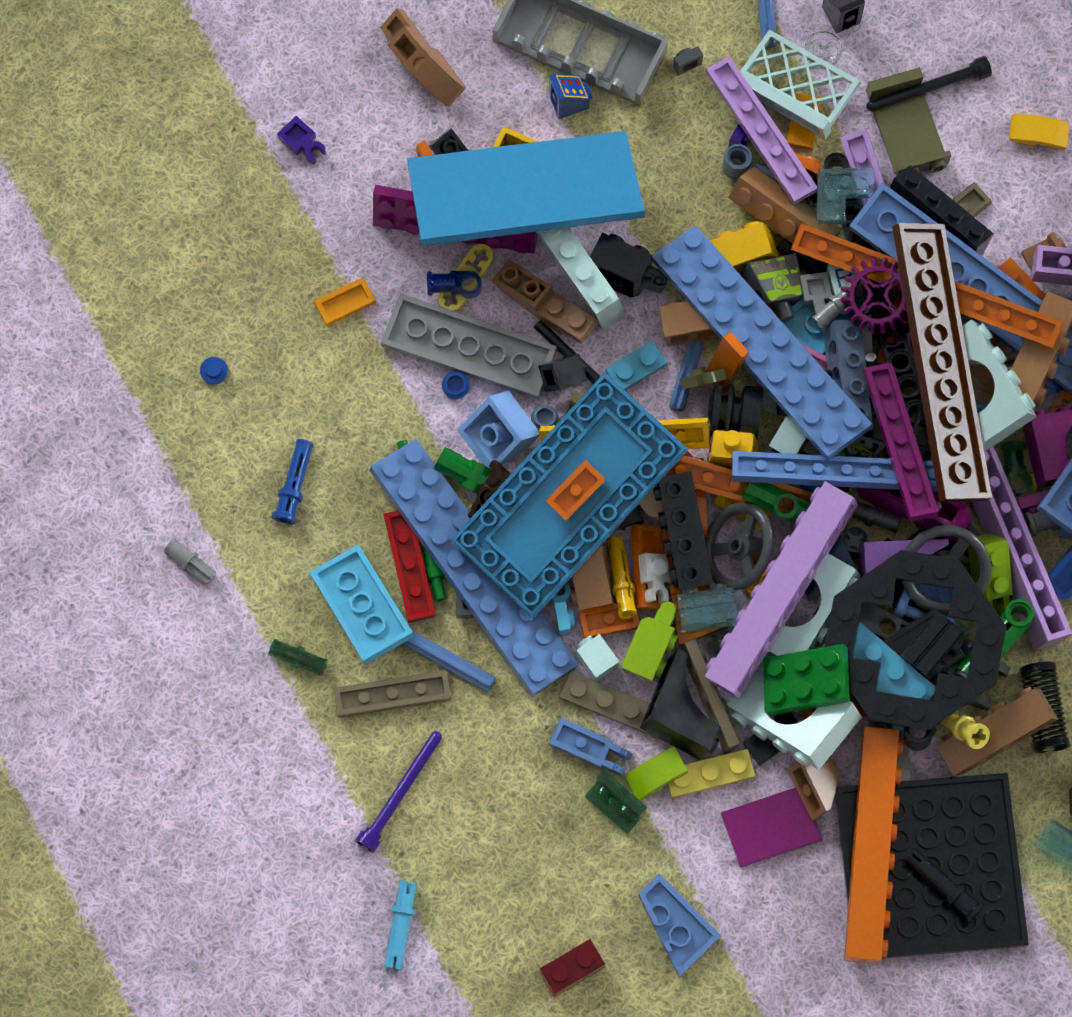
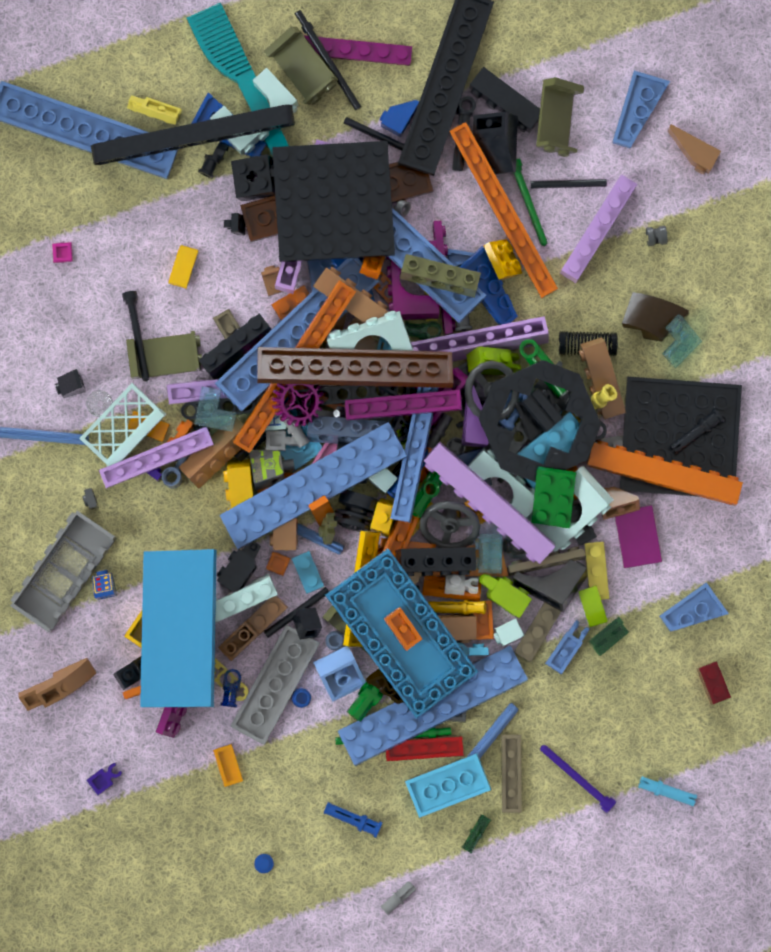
camera: 85 degrees left, 10 degrees up
(641, 324) = (278, 563): none -> orange tile

